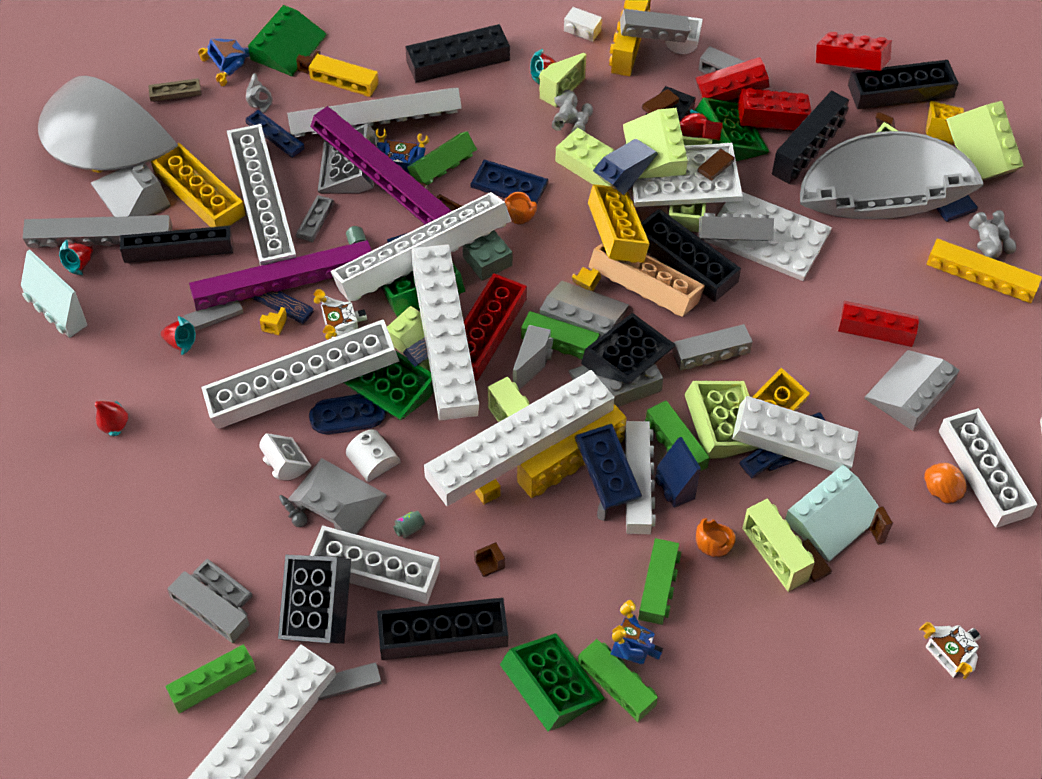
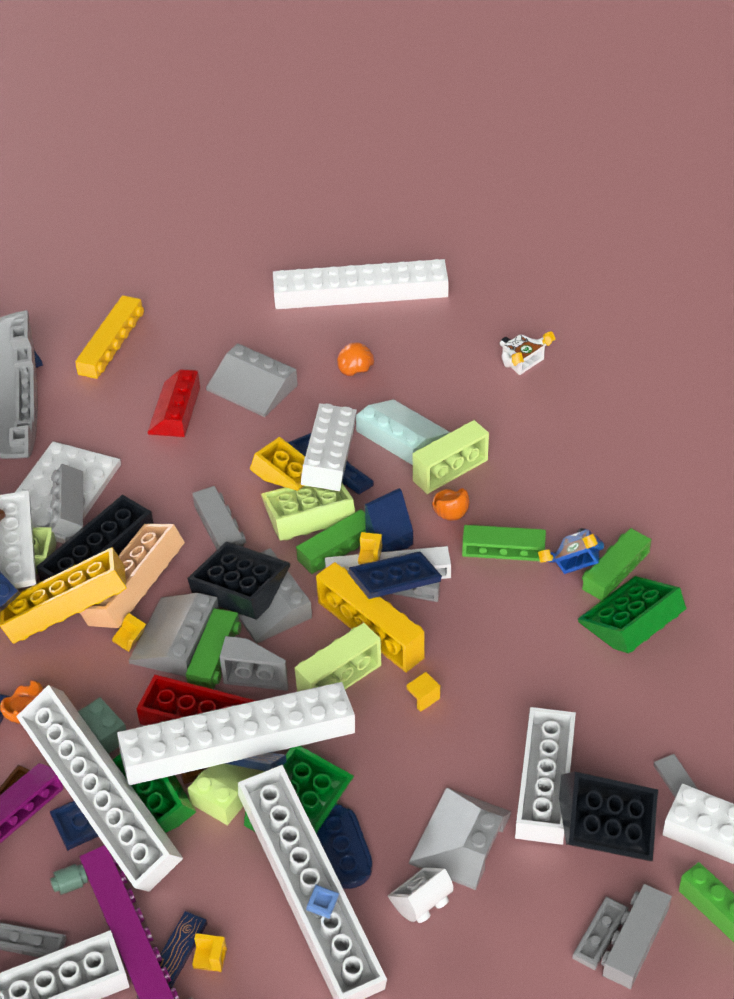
camera: 95 degrees left, 10 degrees down
(274, 374) = (322, 901): none -> medium blue tile
(299, 518) = (495, 870): dark grey bar -> none
(338, 315) = (206, 873): torso -> none
(371, 454) = (400, 806): white brick -> none
(409, 524) = (484, 755): sand green brick -> none
(442, 628) = (606, 703): black brick -> none
(489, 559) = (508, 678): reddish brown panel -> none
(518, 437) = (385, 640): white brick -> none
(647, 456) = (370, 548): none -> yellow panel
(880, 525) = (415, 391): reddish brown tile -> none
(987, 468) = (334, 331): white brick -> none
(992, 233) = (62, 328): light grey animal -> none

